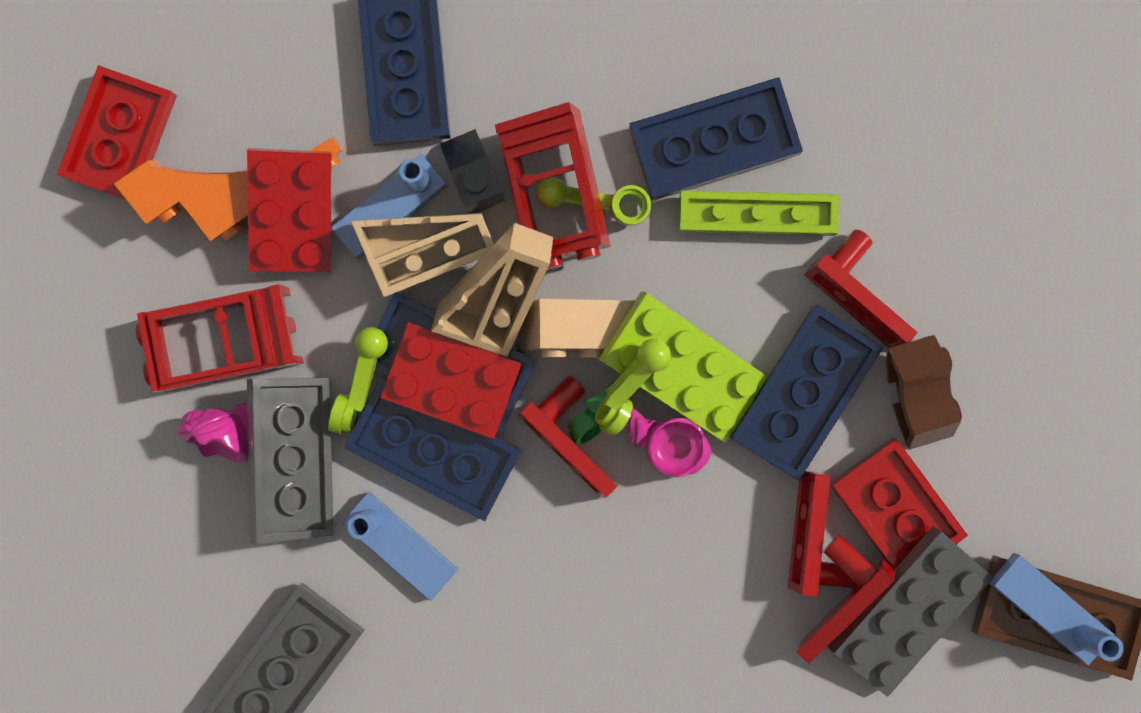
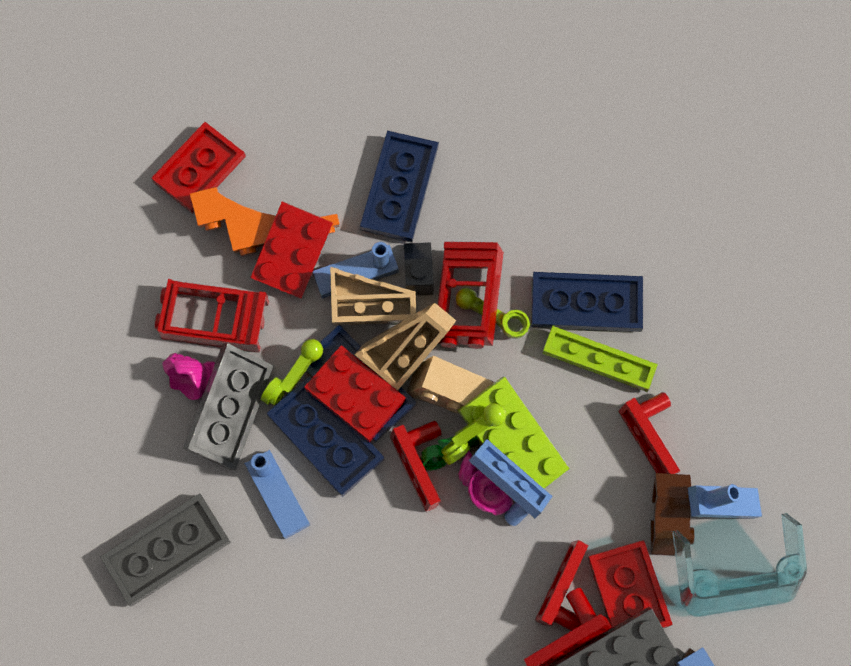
camera: 15 degrees right, 15 degrees down
(702, 428) = (510, 478): none -> medium blue piece
(806, 392) = (594, 487): dark blue plate -> none
(988, 355) = (724, 502): none -> medium blue piece
(1104, 426) = (705, 595): none -> clear light blue windscreen

